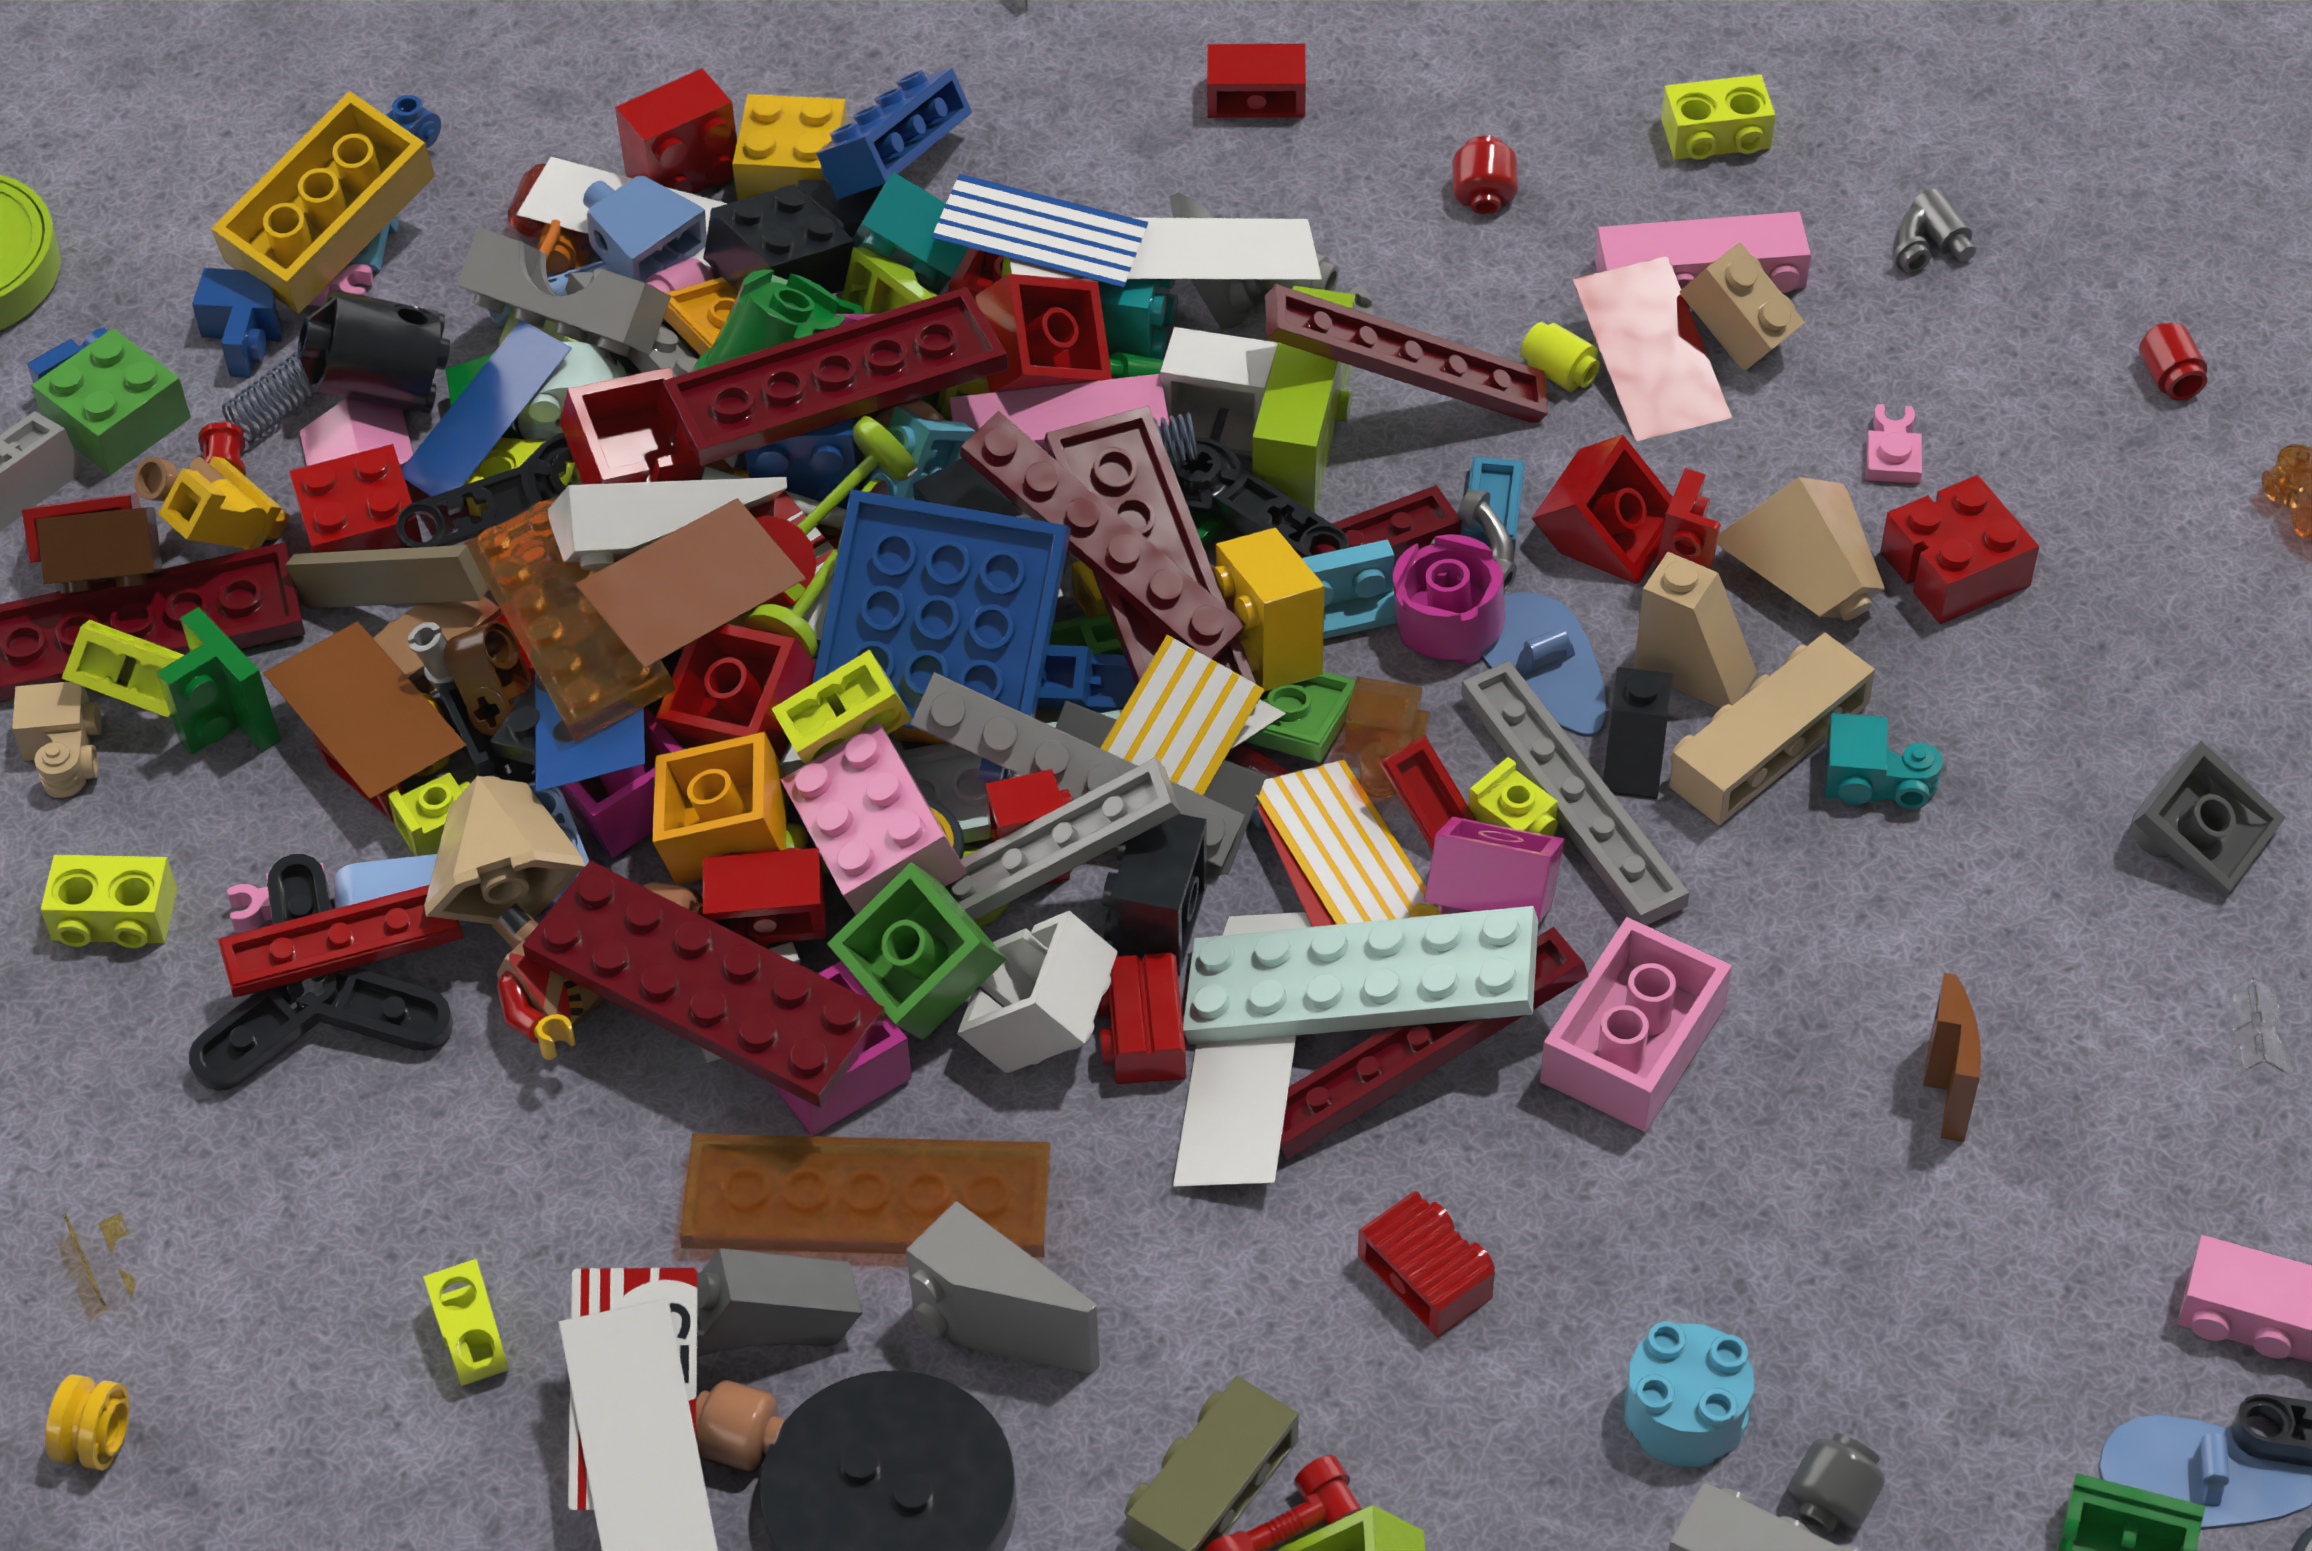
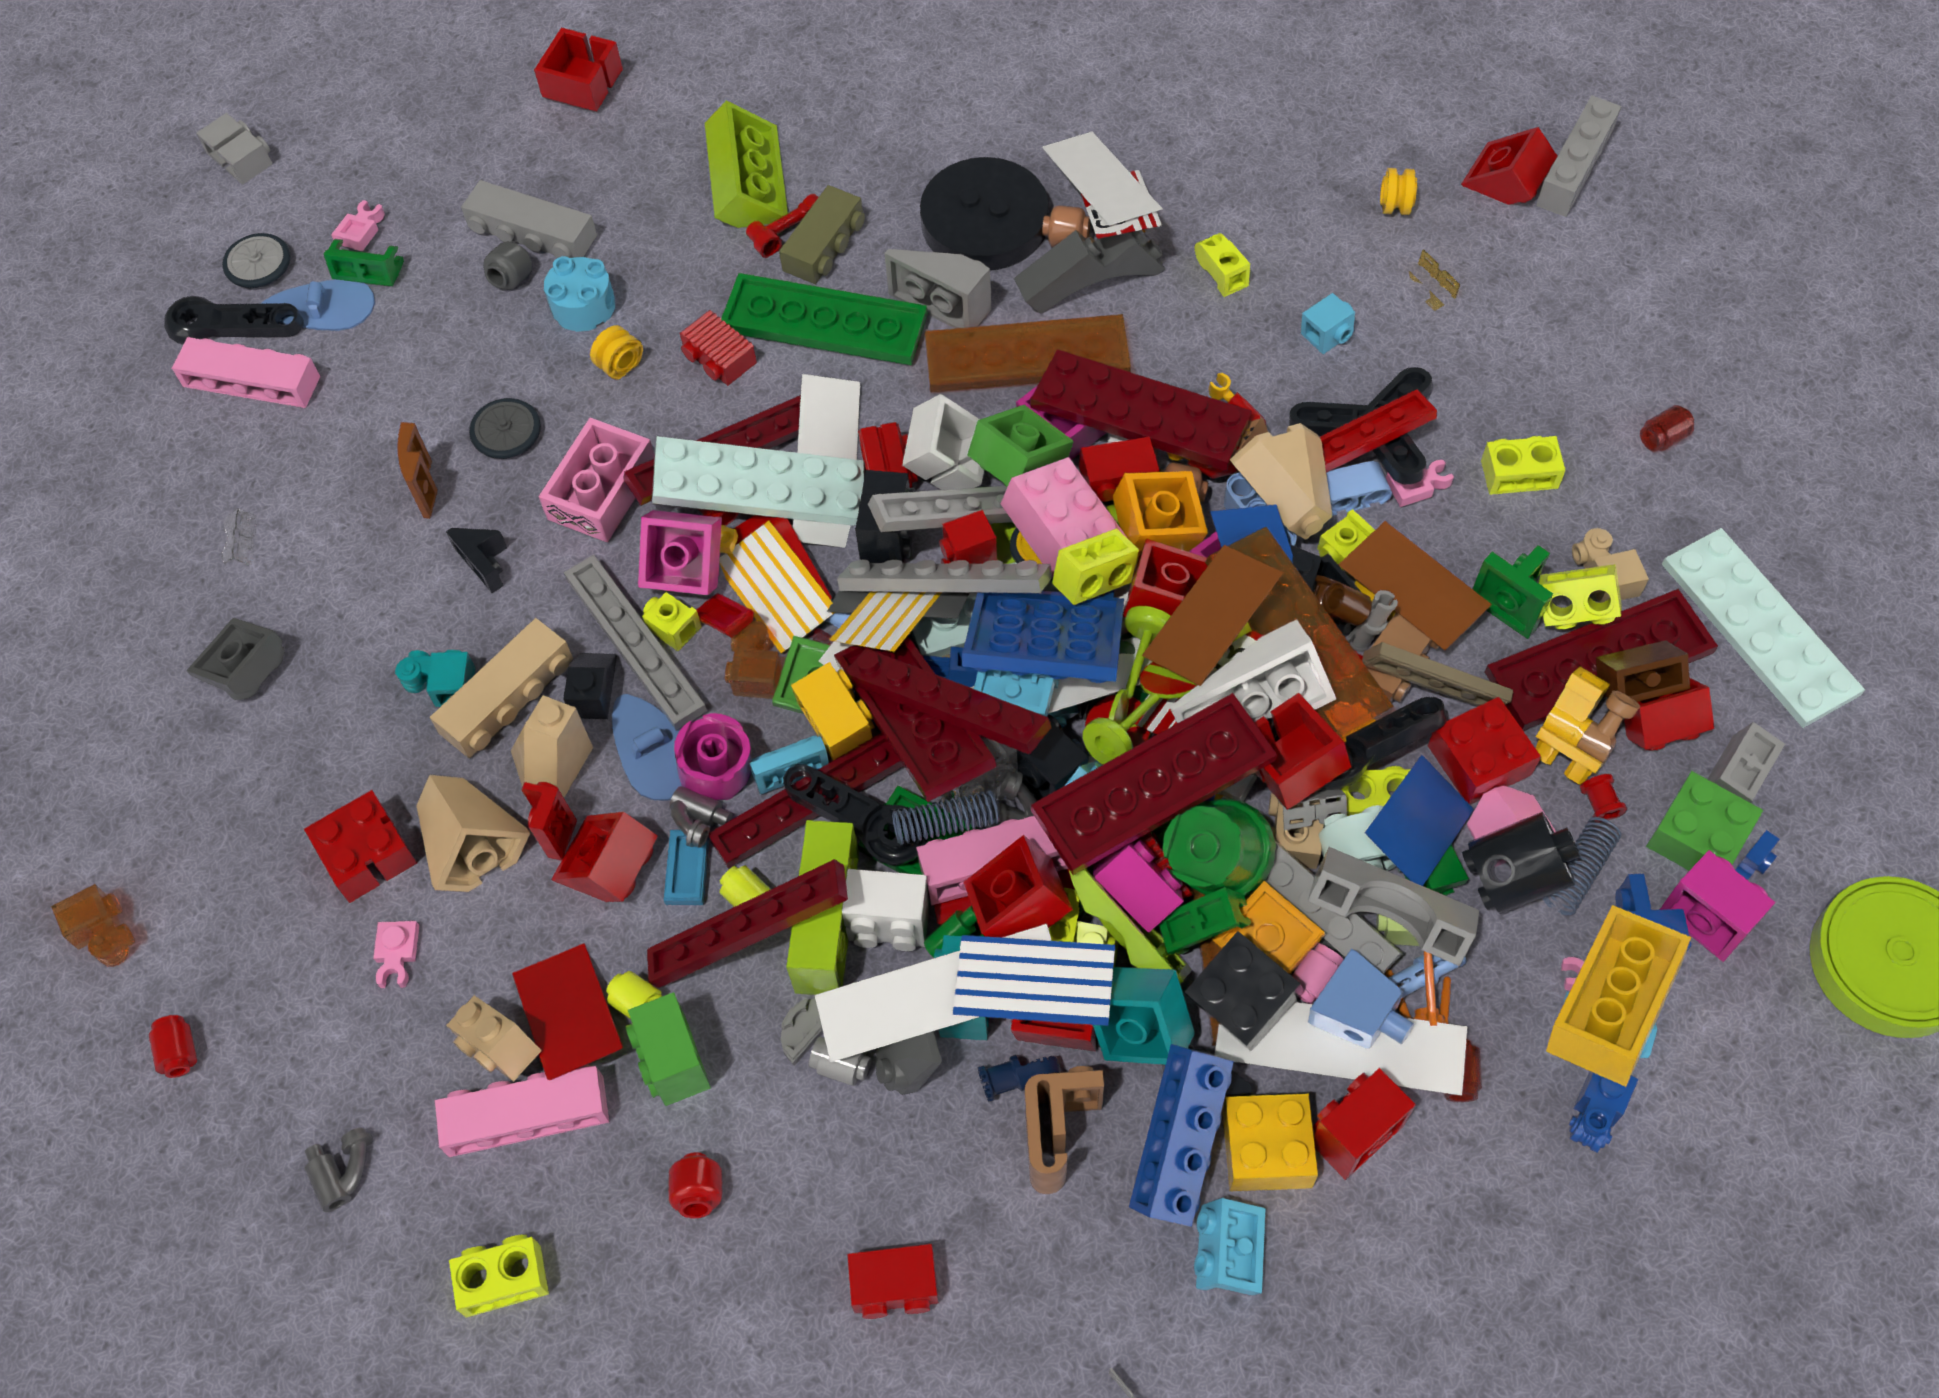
camera: 175 degrees right, 10 degrees up
(149, 298) = (1718, 904): none -> dark pink brick
(320, 1177) = (1328, 323): none -> medium azure brick
(866, 70) = (1230, 1247): none -> medium azure bracket
(1054, 150) = (1063, 1092): none -> medium nougat piece
(1236, 1308) = (825, 318): none -> green plate
(1408, 455) = (741, 885): none -> neon yellow brick
(1513, 272) = (666, 1050): none -> bright green brick
(1613, 1263) = (616, 351): none -> yellow wheel
(1812, 1167) = (505, 428): none -> dark grey wheel
(1834, 940) = (478, 550): none -> black slope

